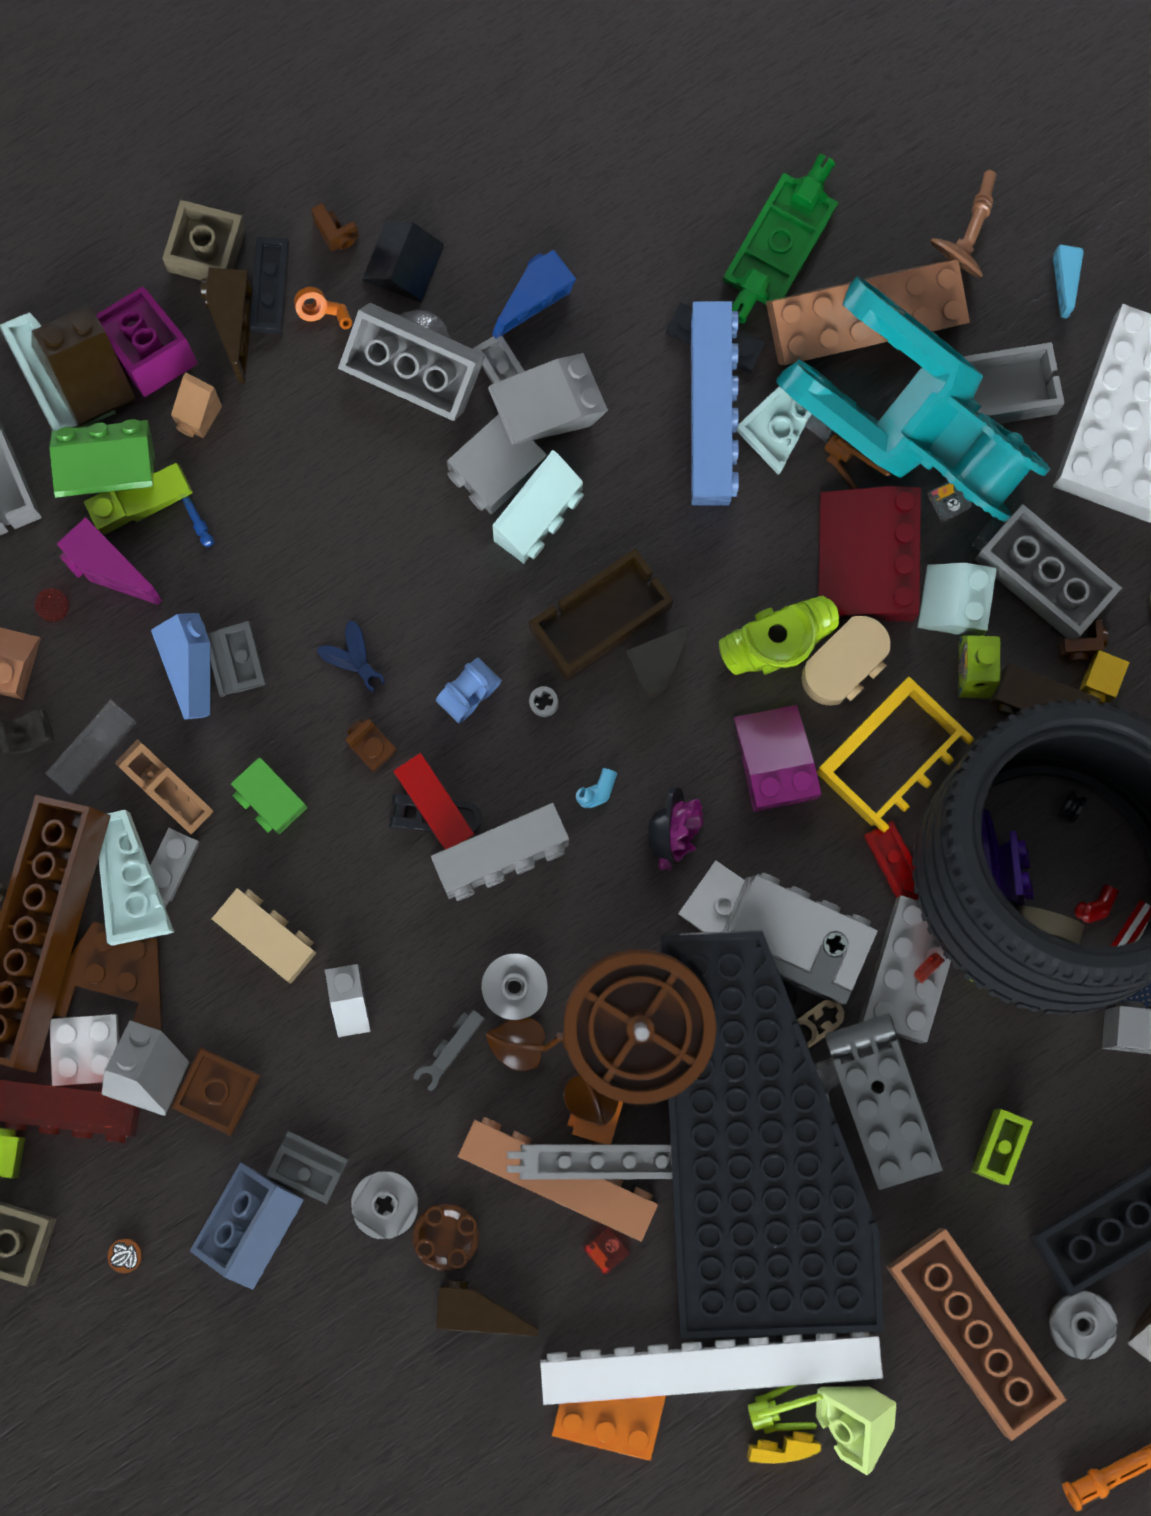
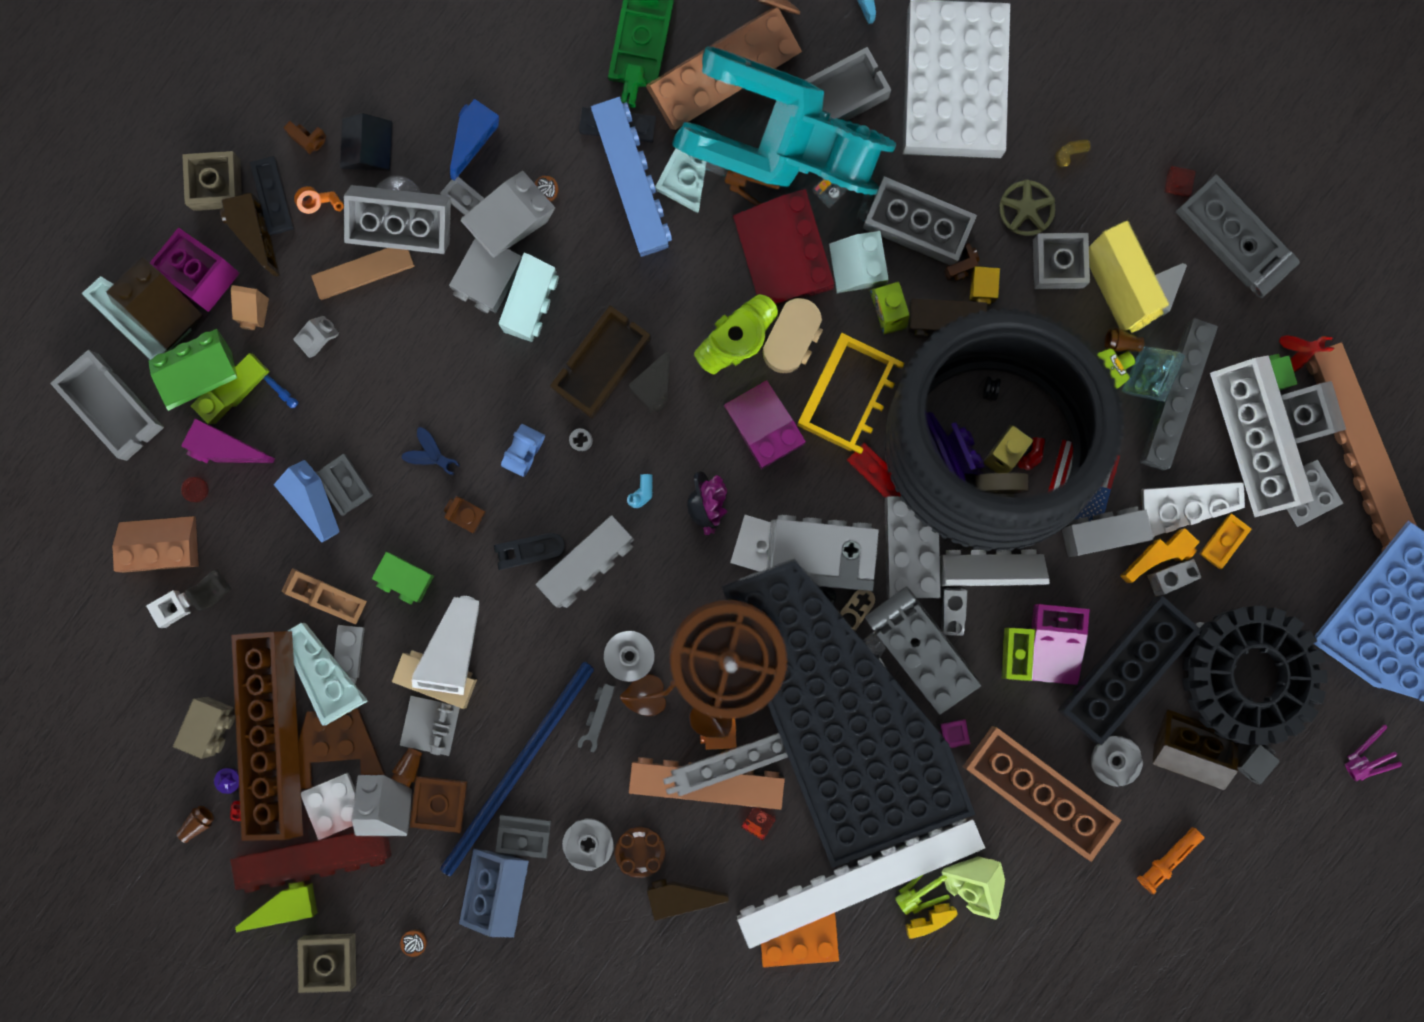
camera: 15 degrees left, 5 degrees up
(90, 747) = (260, 585): clear tile -> none
(193, 1032) = (407, 767): none -> reddish brown cone
(238, 990) = (429, 726): none -> light grey hinge
(263, 468) = (315, 335): none -> light grey bracket
(293, 907) = (449, 651): none -> white slope
(327, 1081) = (517, 769): none -> dark blue axle
(346, 410) = (361, 271): none -> medium nougat tile
(348, 1000) = (511, 706): light grey slope -> none
(433, 802) = (525, 542): red tile -> none
(607, 383) = (548, 187): none -> tile
(891, 1221) = (955, 733): none -> magenta tile
(928, 967) = (924, 543): clear red tile -> none
(937, 1066) = (953, 611): none -> light grey leg
(1003, 1031) = (993, 570): none -> white slope
(1057, 1150) = (1058, 643): none -> slope
(1069, 888) = (1008, 450): none -> light yellow torso

